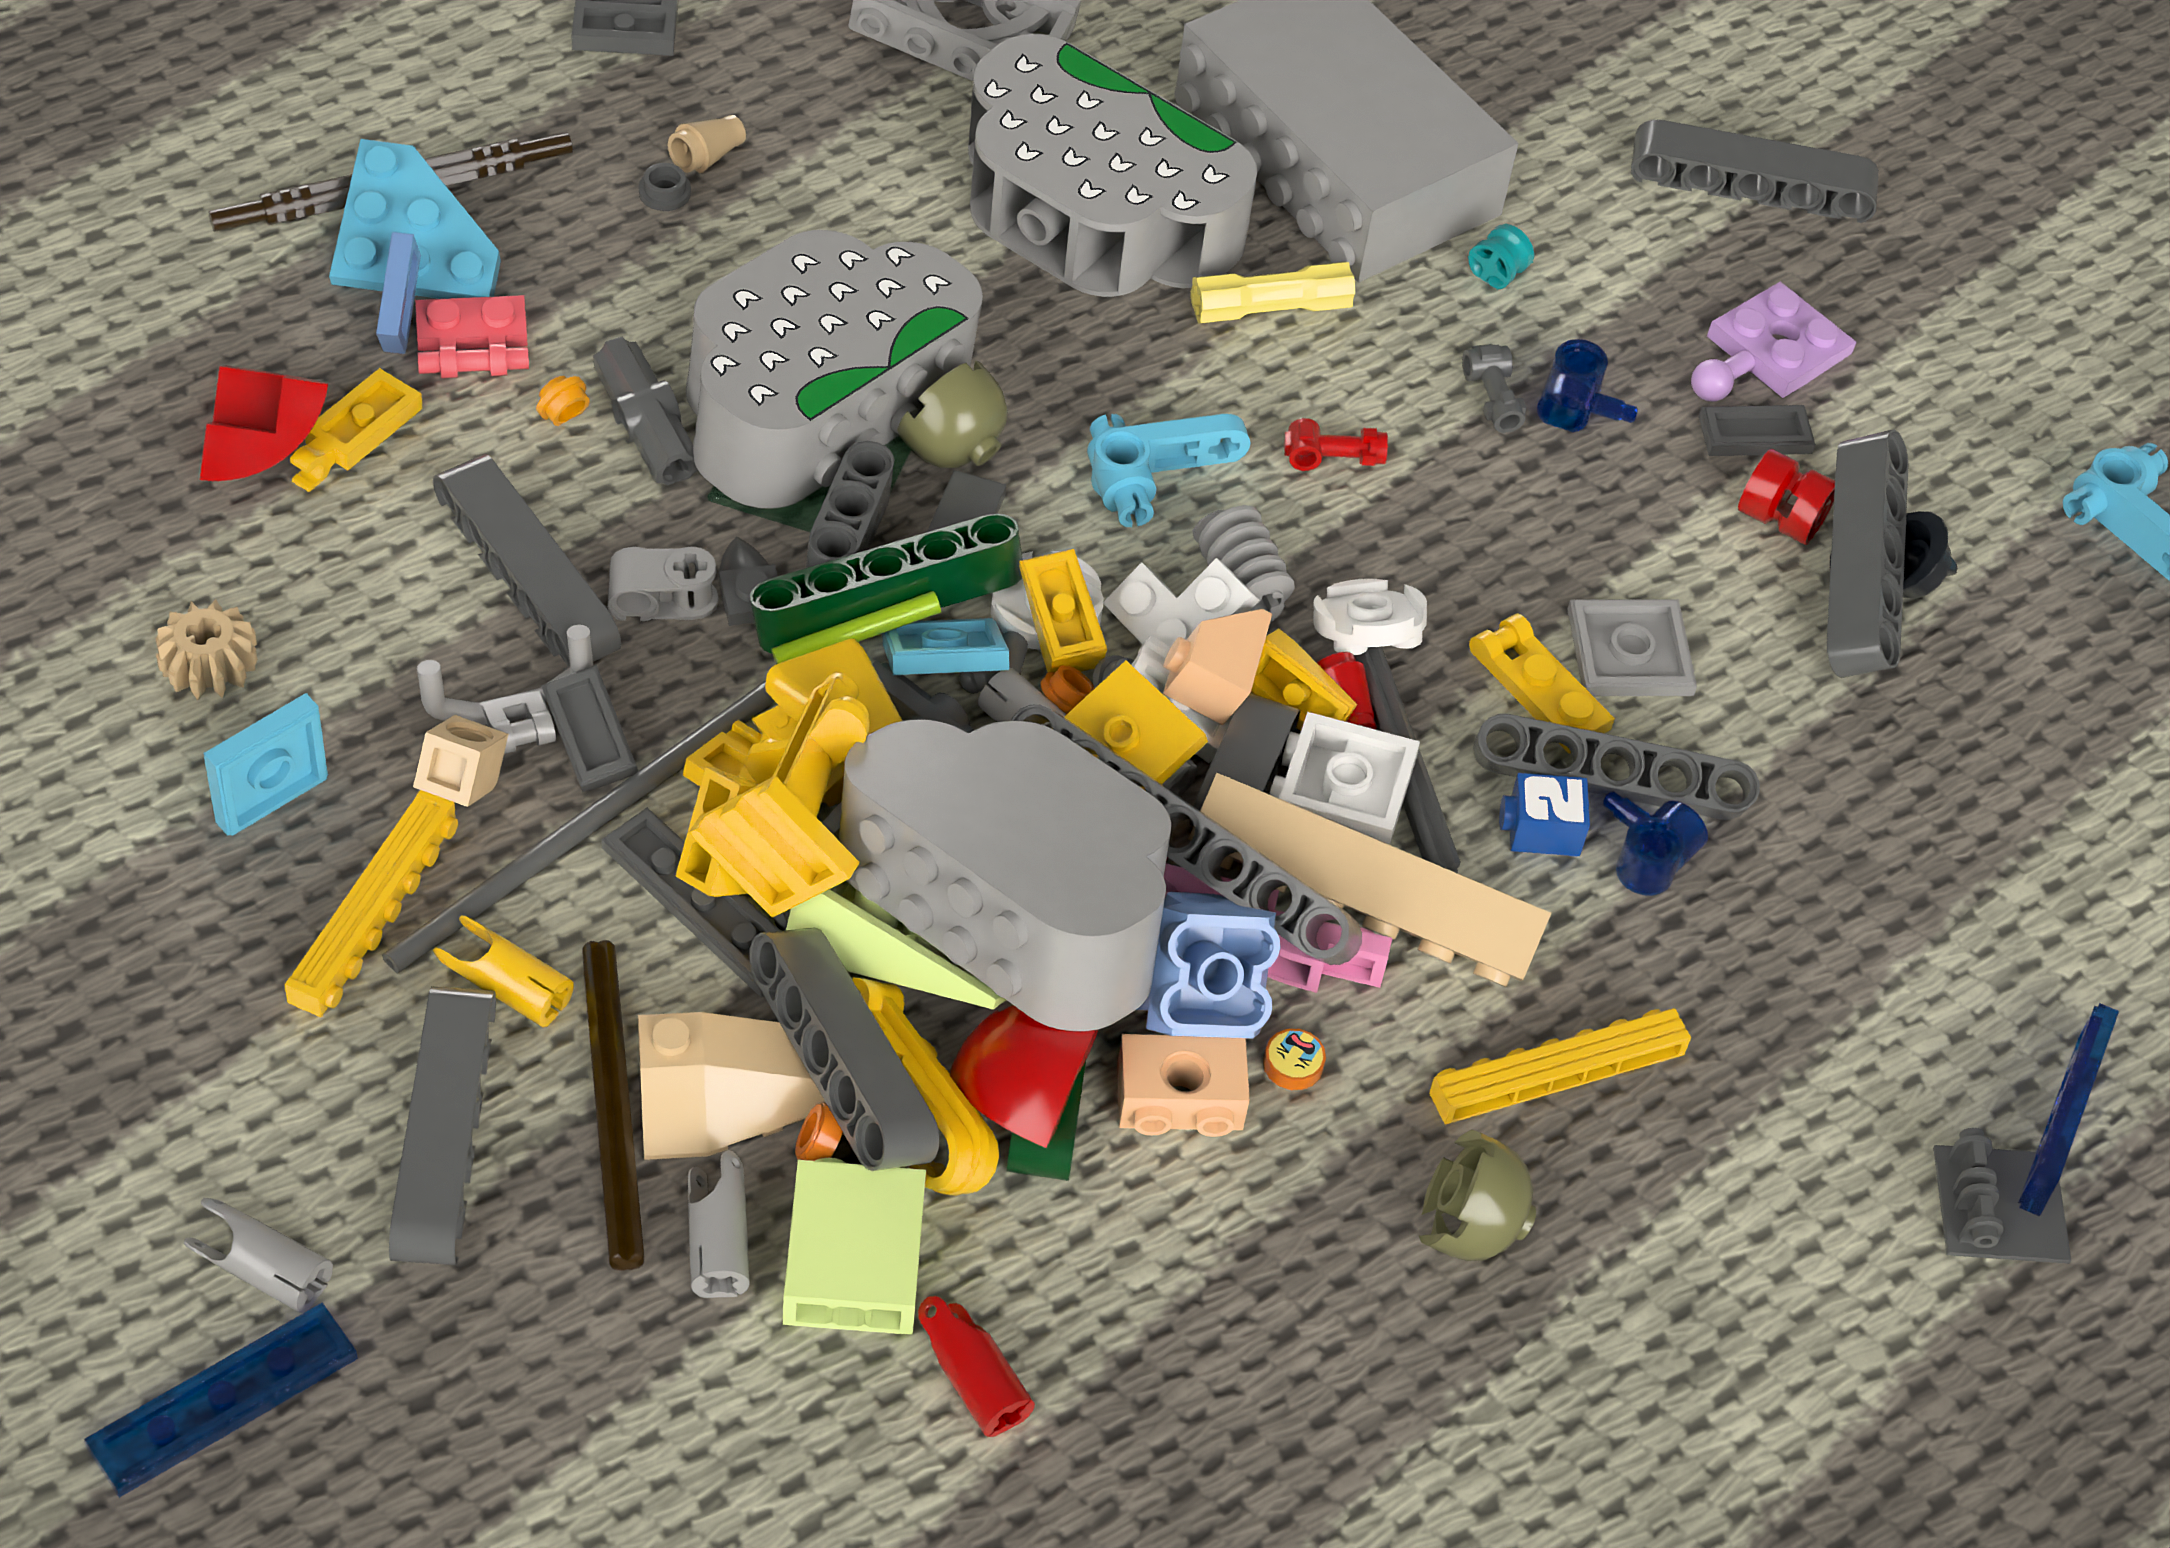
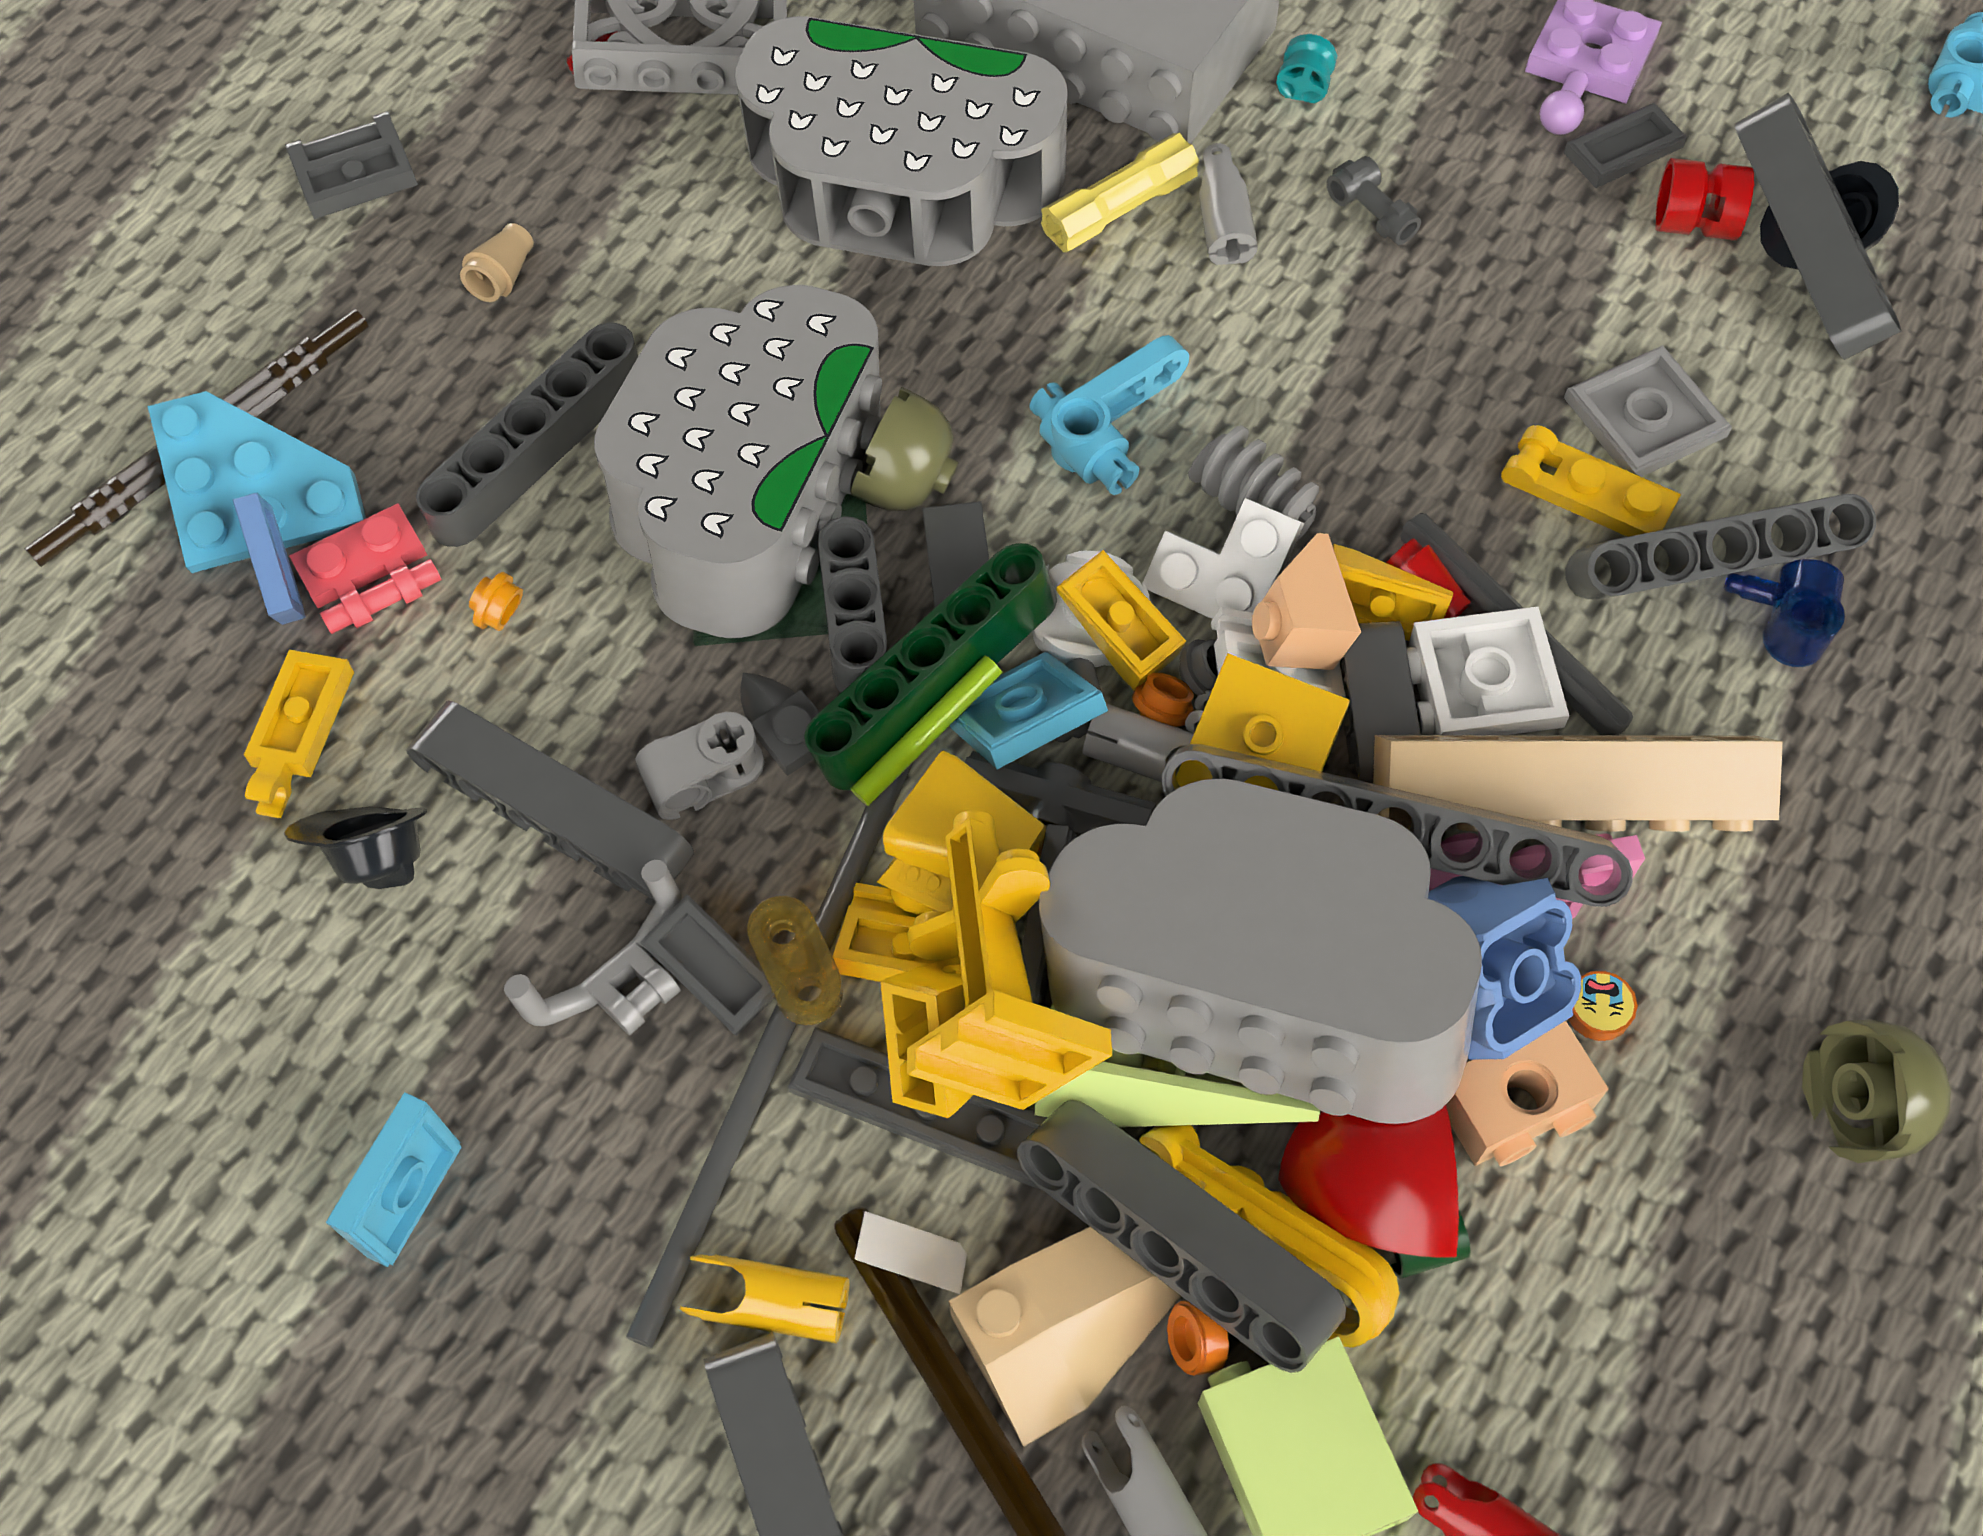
camera: 15 degrees left, 10 degrees up
(206, 649) = (260, 1060): tan gear -> none
(257, 421) = (189, 768): red brick -> none
(366, 537) = (364, 843): none -> black piece
(371, 903) = (584, 1284): yellow piece -> none
(460, 760) = (599, 1071): tan brick -> none
(629, 984) = (911, 1252): none -> white sticker
(646, 286) = (527, 436): none -> dark grey beam
(646, 410) = (586, 577): dark grey piece -> none
(655, 751) = (797, 963): none -> clear yellow plate
(664, 187) = (476, 315): dark grey plate -> none
(1307, 445) = (1242, 336): red bar -> none
(1356, 341) = (1226, 209): none -> light grey piece
(1368, 615) = (1405, 489): white plate -> none
(1546, 814) = (1685, 625): blue brick -> none
(1559, 1065) = (1847, 891): yellow piece -> none
(1575, 388) = (1447, 171): clear blue piece -> none

